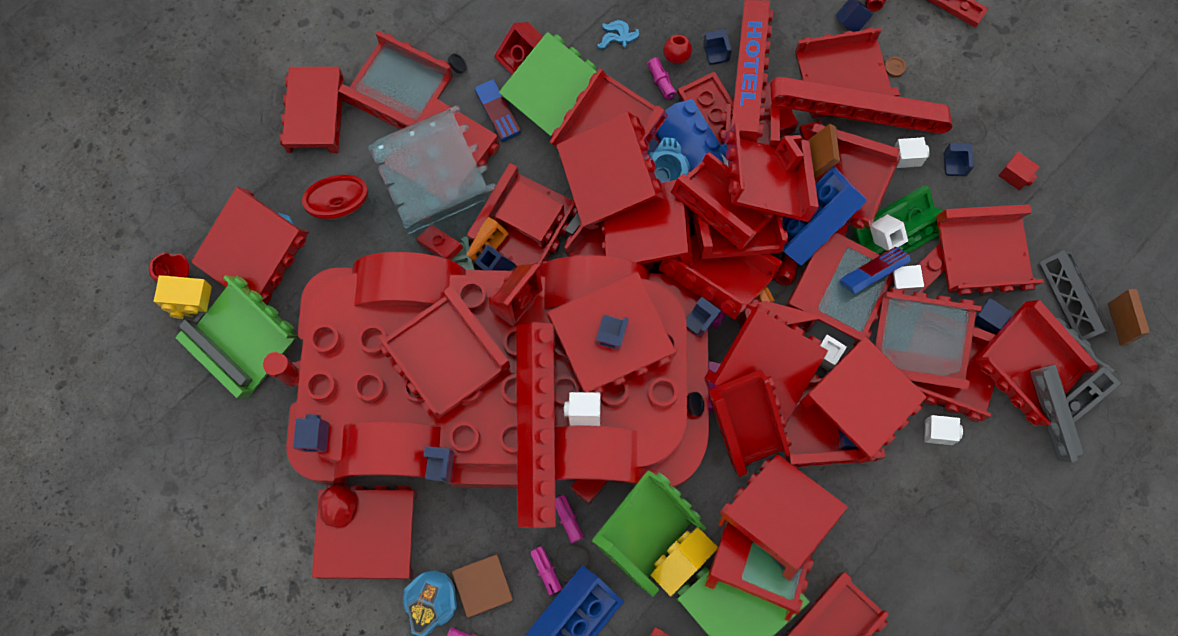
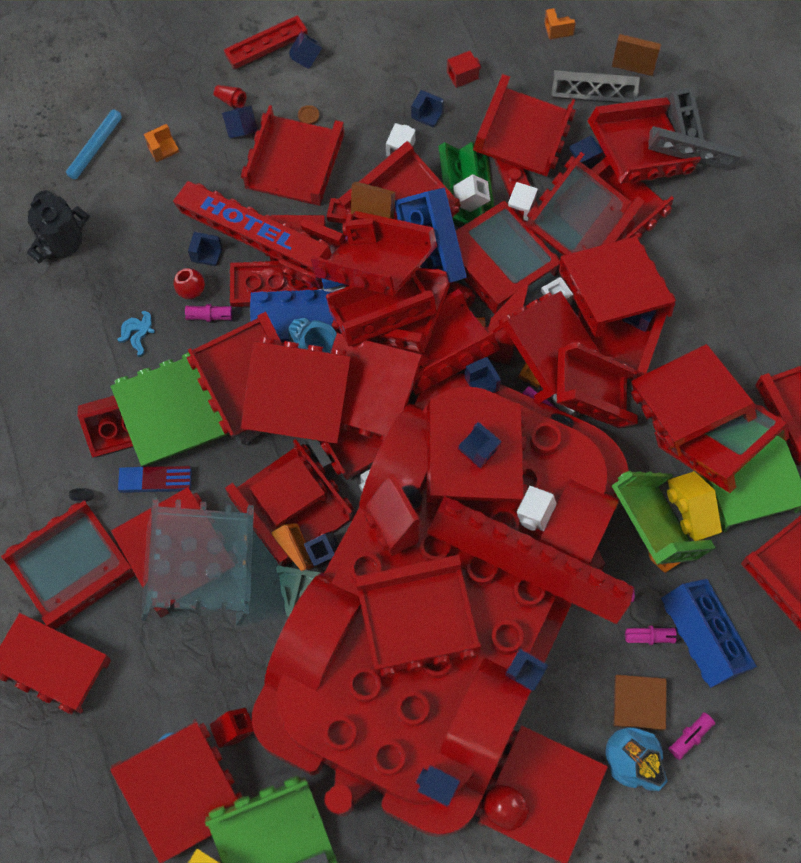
camera: 65 degrees left, 5 degrees down
(316, 261) = (232, 727): none -> red brick
(335, 196) = (166, 678): red dish -> none
(439, 243) = (273, 595): red plate -> none
(550, 300) = (414, 495): none -> black piece
(860, 105) = (338, 157): red beam -> none
(875, 270) = (503, 219): blue tile -> none
(943, 430) = (666, 241): white brick -> none
(957, 32) = (305, 50): none -> dark blue panel
(1120, 236) = (558, 27): none -> orange panel

